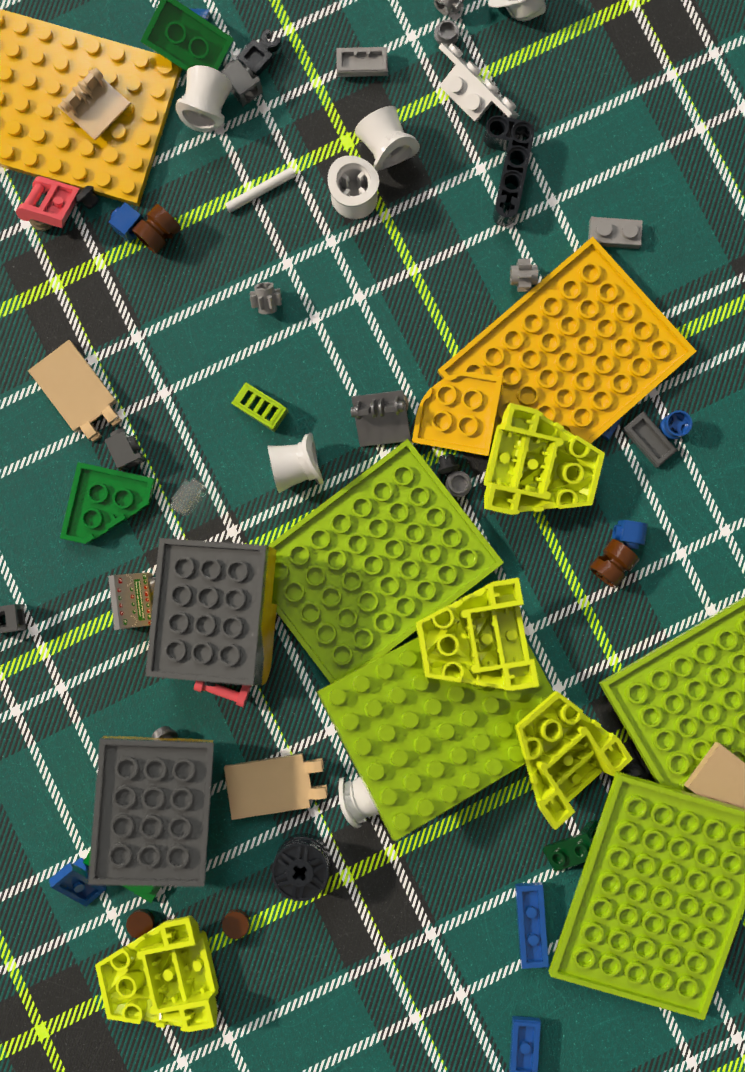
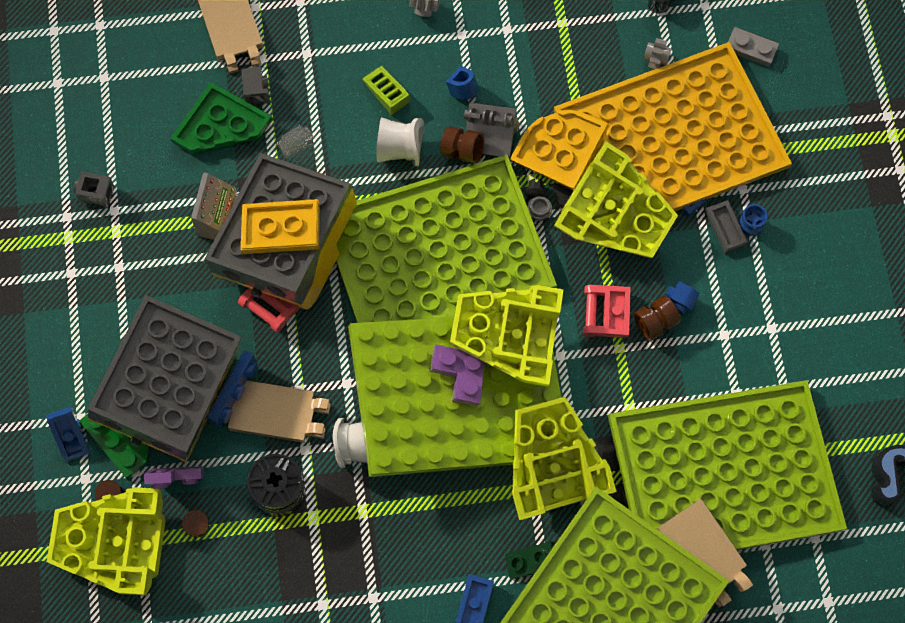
camera: 15 degrees right, 15 degrees down
(186, 899) = (165, 476): none -> medium lavender plate
(211, 618) = (280, 226): none -> yellow tile
(223, 785) = (232, 390): none -> blue plate
(336, 376) = (463, 84): none -> blue plate
(359, 445) = (462, 145): none -> reddish brown wheel
(451, 697) = (466, 370): none -> medium lavender plate
(569, 569) = (615, 314): none -> coral plate

